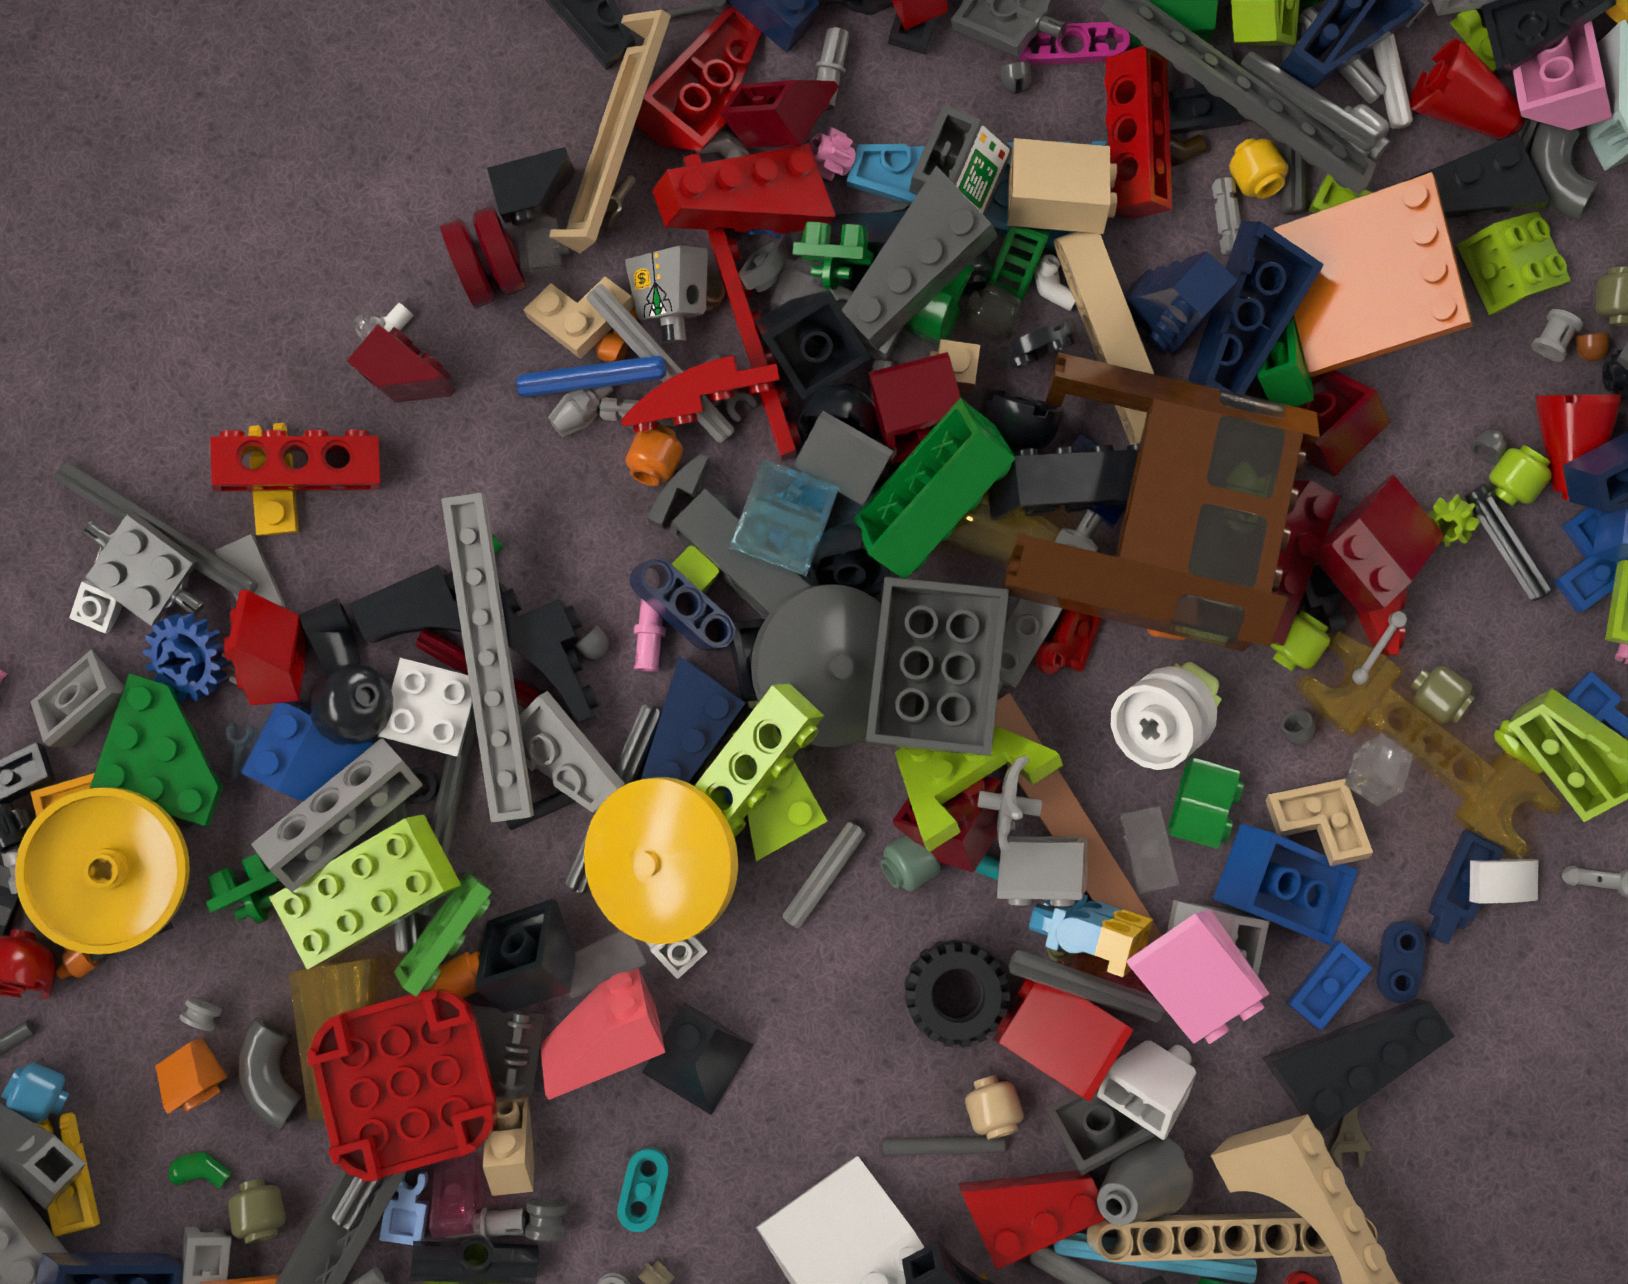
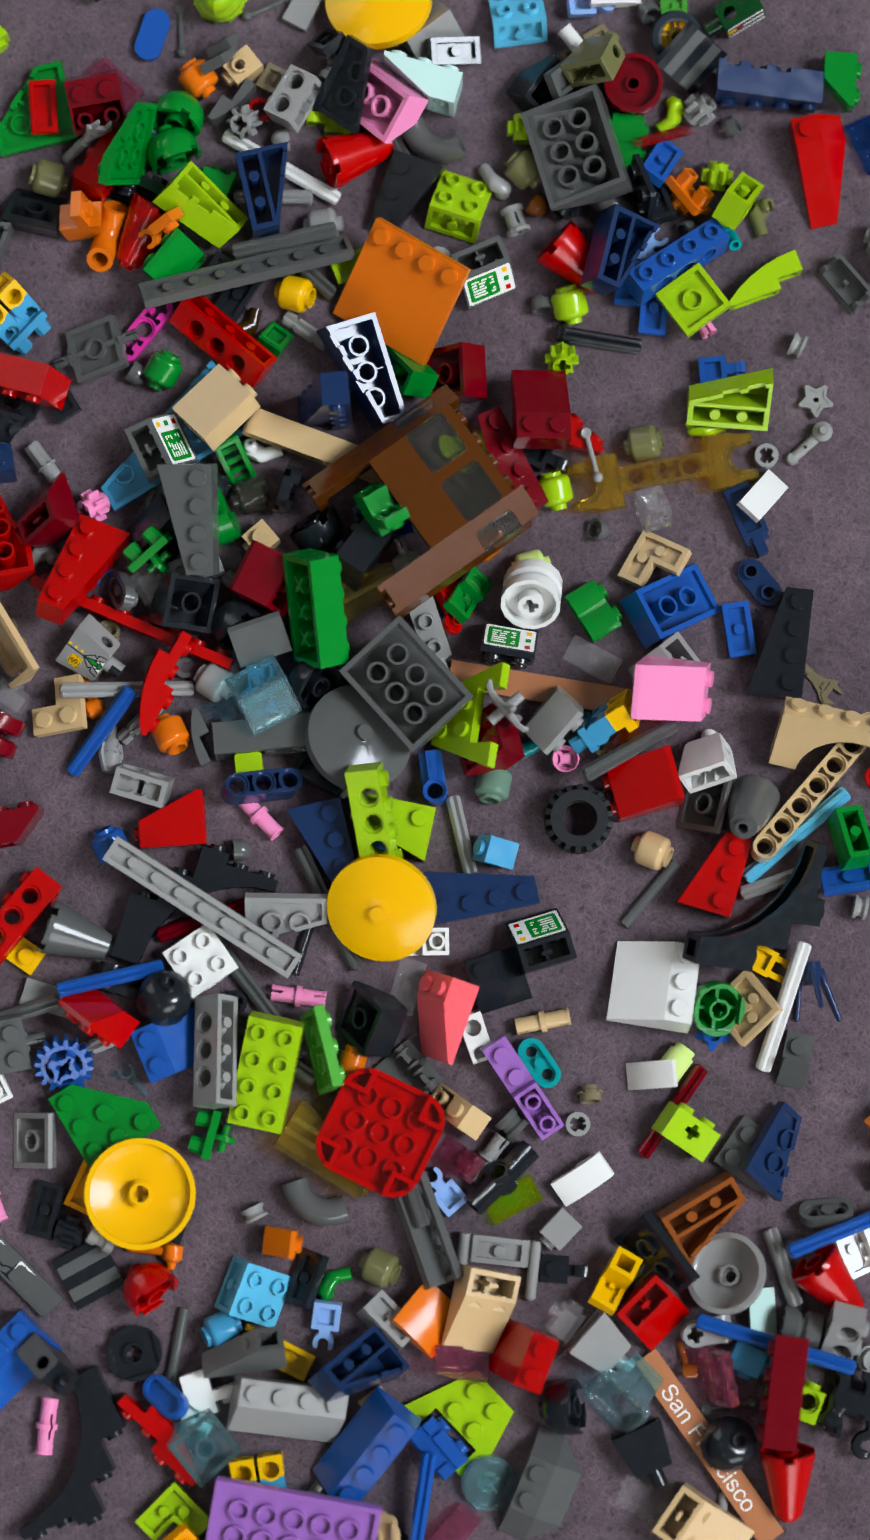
camera: 50 degrees left, 0 degrees up
(107, 1090) = (253, 1292): none -> medium azure bracket
(146, 1201) = (325, 1319): none -> light blue plate
(175, 1138) = (307, 1278): none -> black plate
(318, 623) = (108, 978): none -> blue axle
(337, 543) = (73, 935): none -> dark grey cone
(477, 481) = (103, 840): none -> blue head
(486, 850) = (298, 995): none -> bright pink pin
(559, 548) = (175, 825): none -> red slope
(569, 473) = (142, 785): none -> light grey brick
(598, 1195) = (522, 1086): none -> medium lavender slope
(609, 1097) = (476, 1036): none -> white leg
(694, 1151) = (543, 1021): none -> tan pin
(748, 448) = (211, 682): none -> light grey head
(773, 956) = (476, 895): none -> dark blue wedge
(780, 1072) = (540, 941): none -> black slope
(837, 931) = (495, 851): none -> dark azure brick
(863, 783) = (433, 775): none -> blue piece
(1010, 924) = (565, 759): none -> bright pink wheel
(1046, 99) = (162, 370): none -> green head
(1083, 742) = (508, 644): none -> slope
(1097, 645) = (466, 594): none -> green slope
(1111, 461) = (380, 509): none -> green brick
(1189, 191) = (275, 339): none -> green slope
(1474, 358) = (490, 272): none -> slope
(1557, 854) = (774, 456): none -> light grey bush
(1578, 277) = (495, 182): none -> light grey arm

